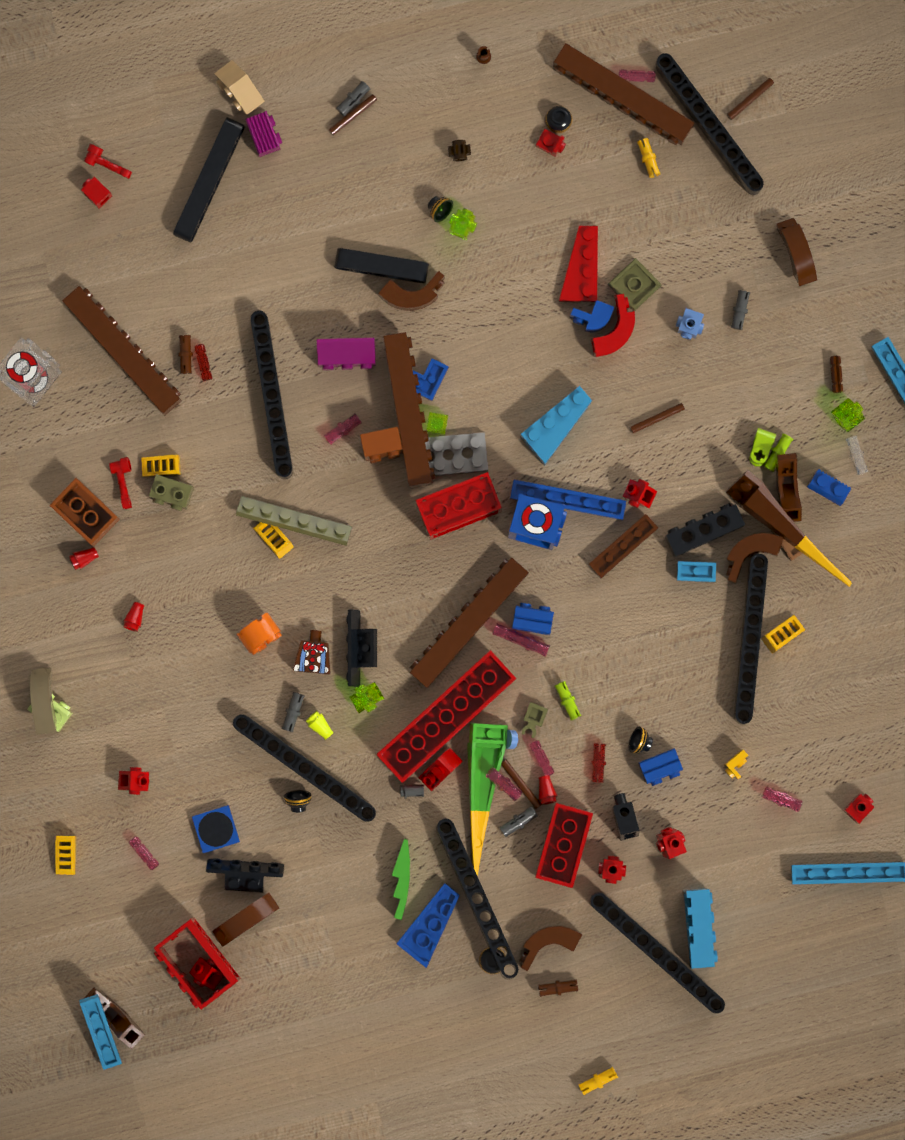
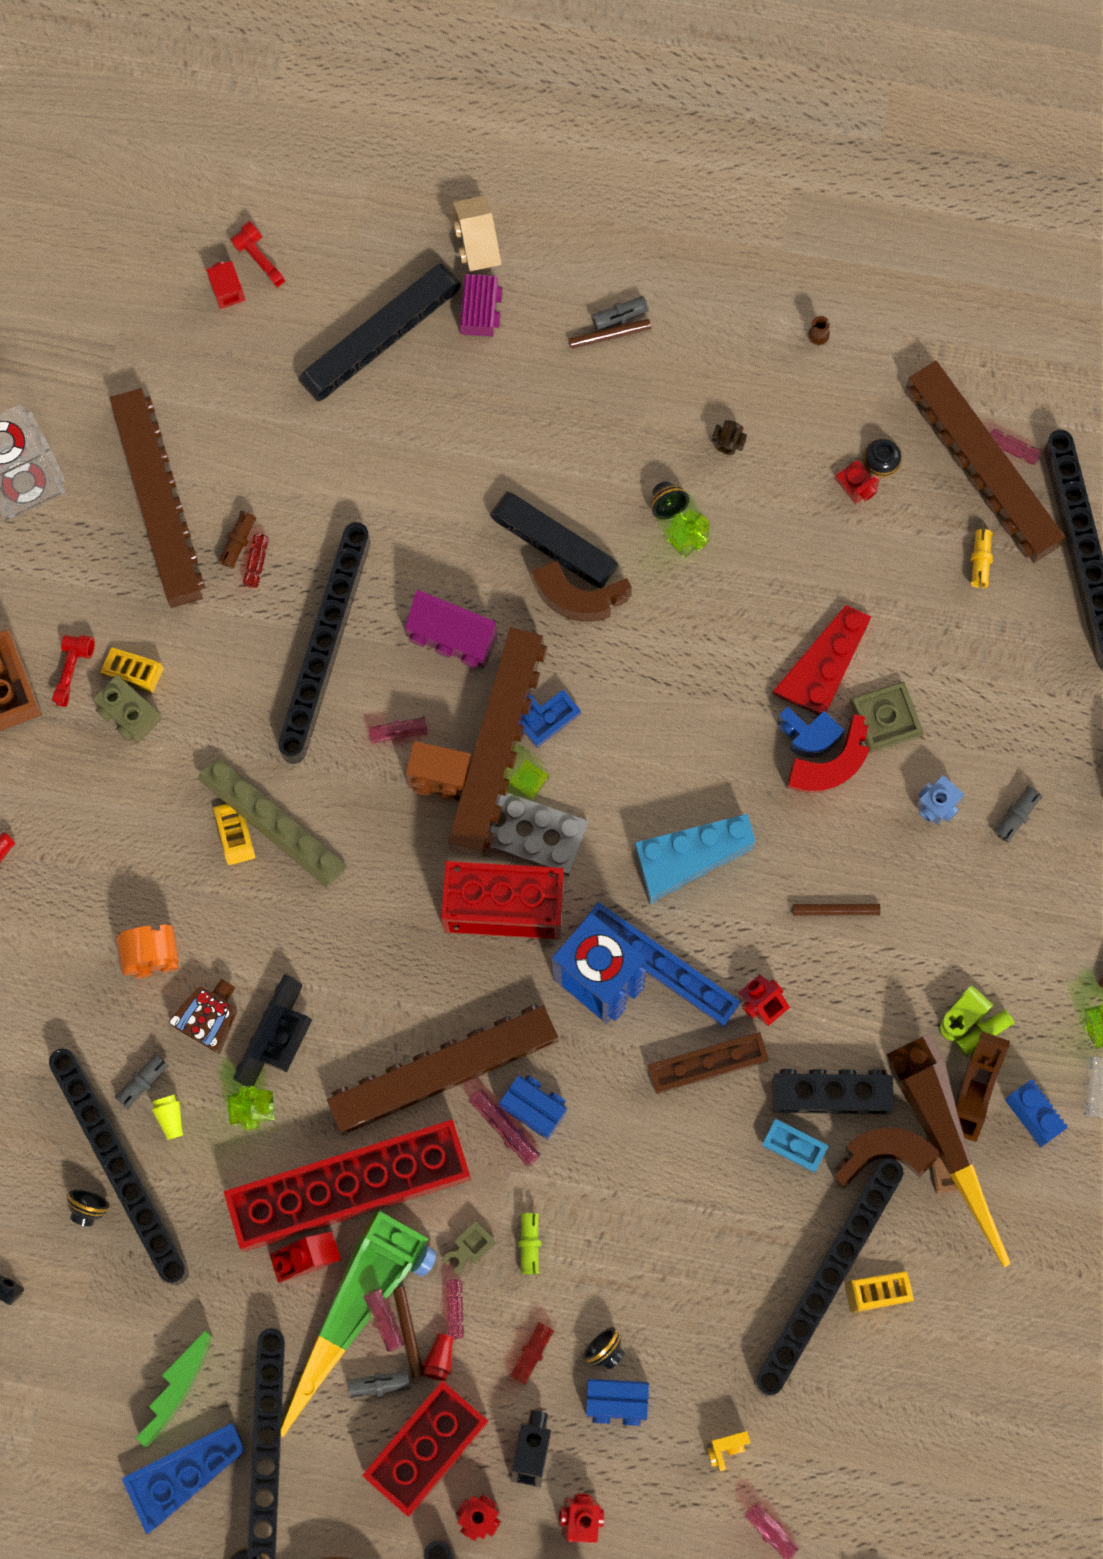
camera: 25 degrees right, 10 degrees down
(411, 791) = (250, 1268): dark grey pin -> none

